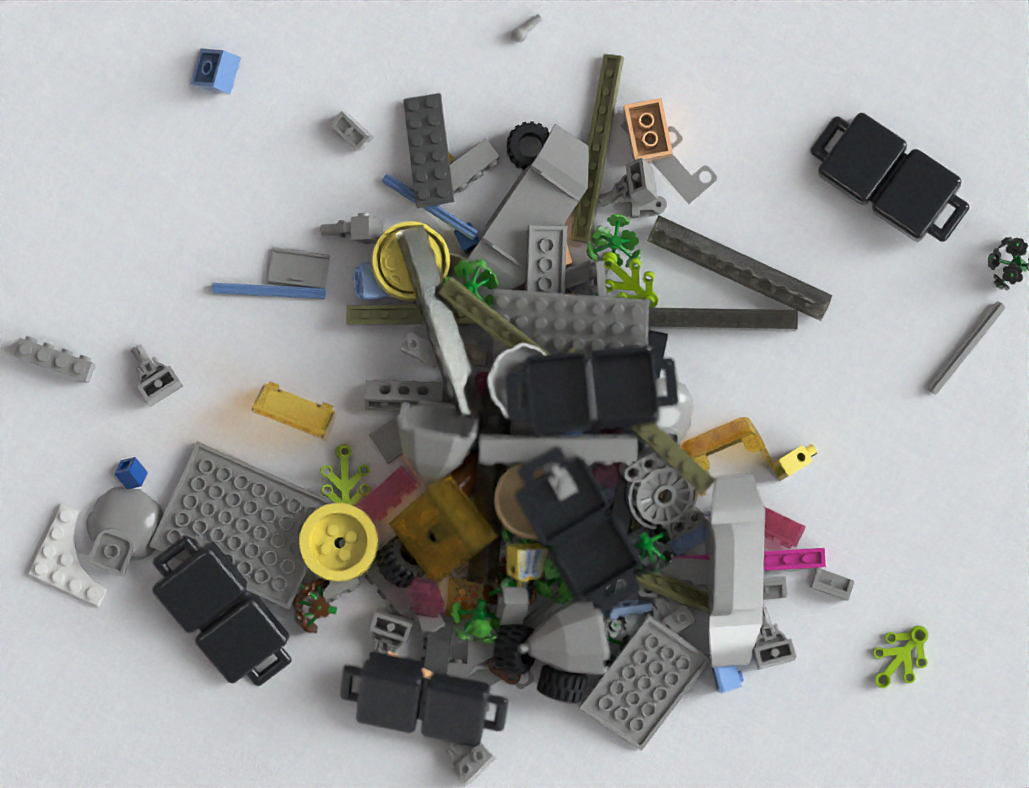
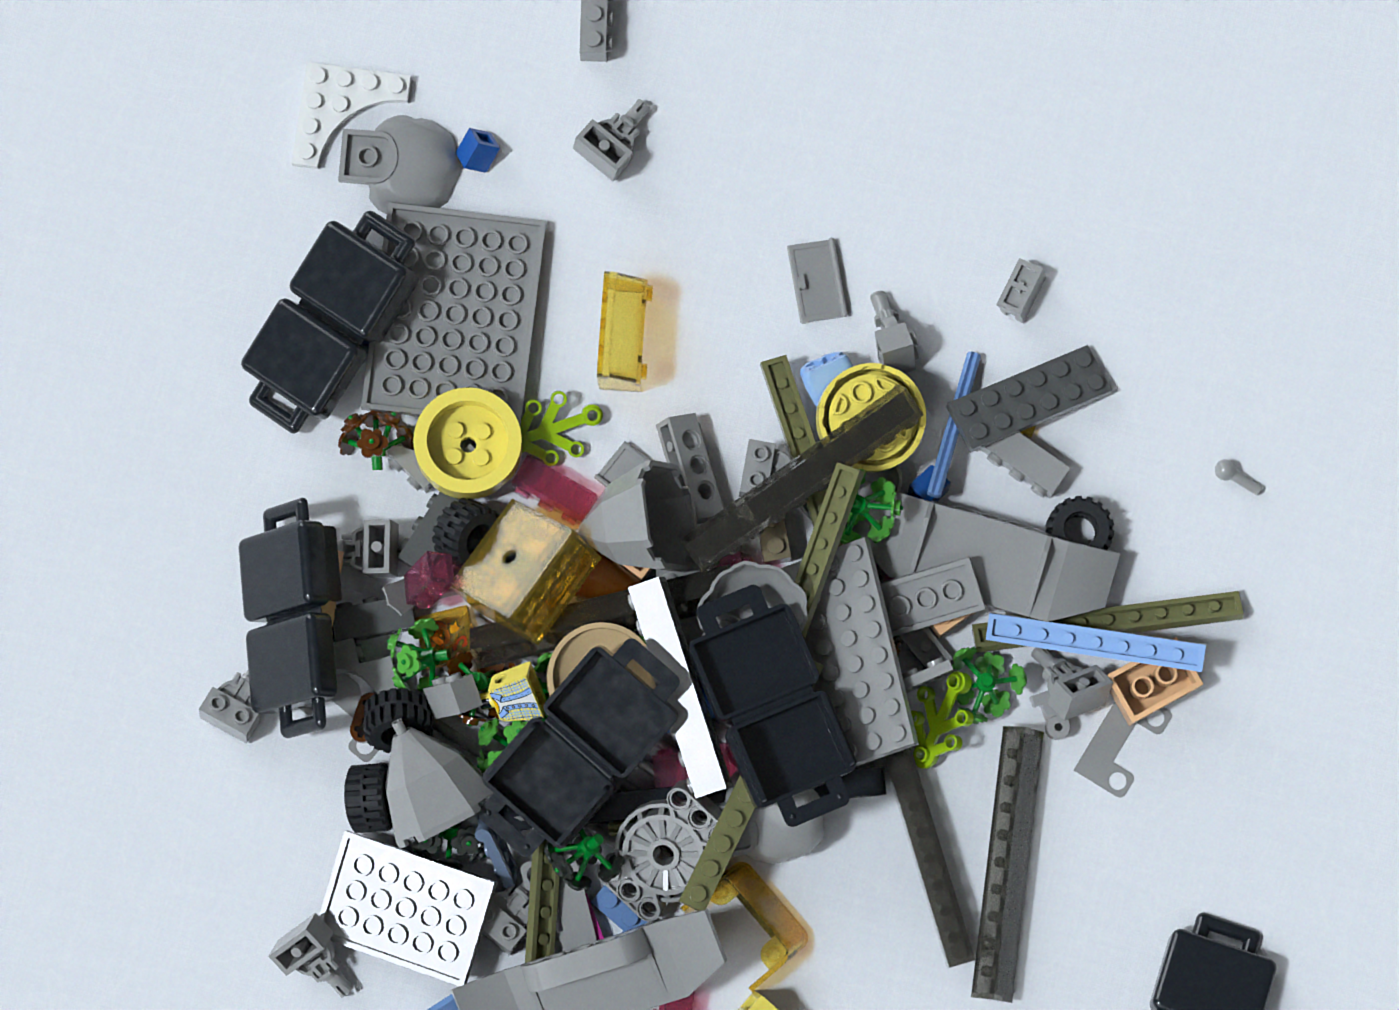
camera: 75 degrees right, 5 degrees down
(215, 70) = (1042, 91): medium blue slope -> none
(268, 290) = (774, 251): medium blue axle -> none
(560, 480) = (635, 700): light grey hinge -> none
(611, 159) = (1096, 642): none -> light blue plate
(653, 756) = (311, 953): none -> light grey brick

